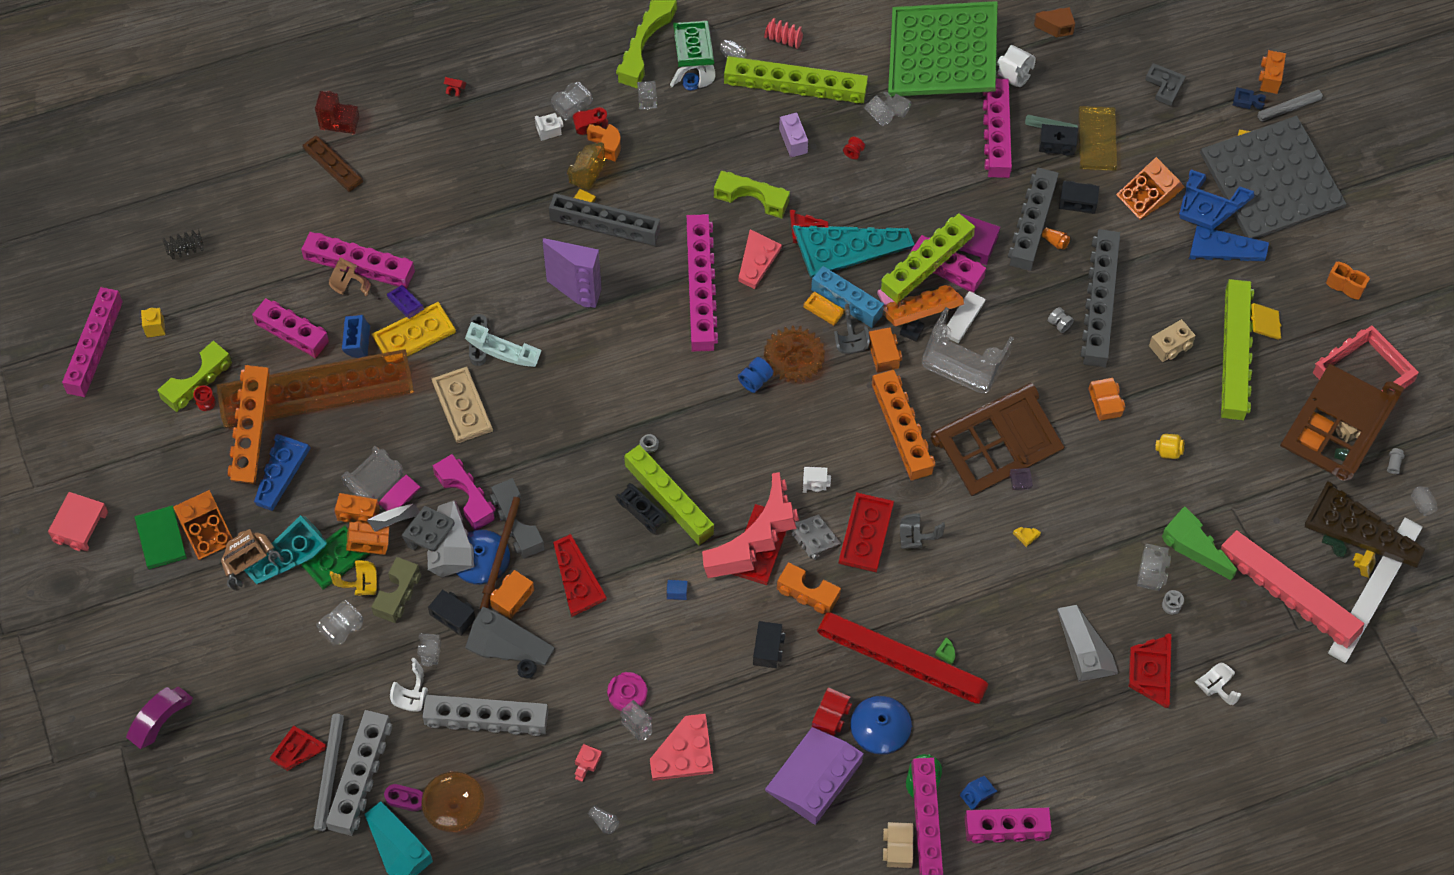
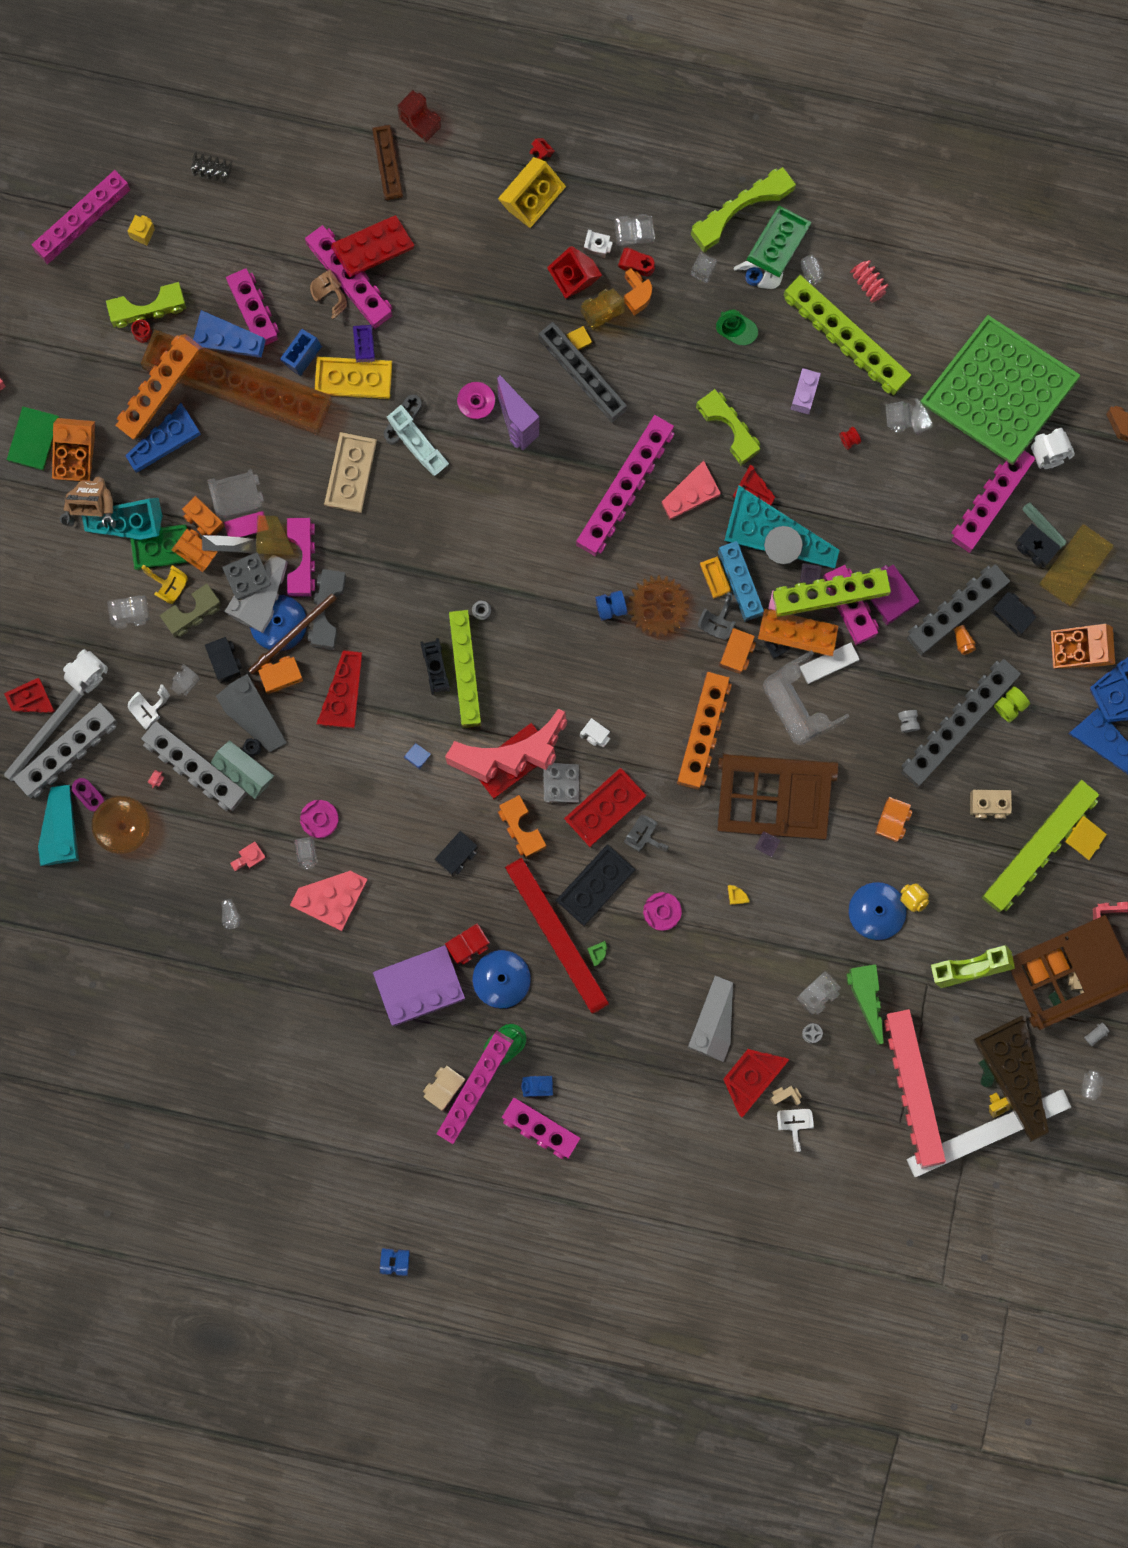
camera: 30 degrees right, 20 degrees up
(288, 356) = (226, 337): none -> blue wing
(334, 693) = (85, 672): none -> white brick
(363, 225) = (372, 246): none -> red plate
(428, 489) = (271, 537): none -> clear yellow wing
(458, 746) = (156, 778): none -> coral plate
(468, 118) = (532, 192): none -> yellow slope
(530, 283) = (475, 391): none -> dark pink dish
(531, 688) = (242, 769): none -> sand green brick
(543, 154) = (573, 272): none -> red slope
(705, 120) = (736, 327): none -> green piece
(861, 249) = (783, 544): none -> light grey tile
(896, 257) = (810, 573): none -> clear purple plate
(903, 599) = (595, 885): none -> black tile
(975, 585) = (662, 911): none -> dark pink tile
(1130, 260) = (1009, 706): none -> lime wheel
(1146, 486) = (866, 919): none -> blue dish
(1194, 658) = (781, 1094): none -> tan bracket
(1273, 450) = (989, 963): none -> lime arch

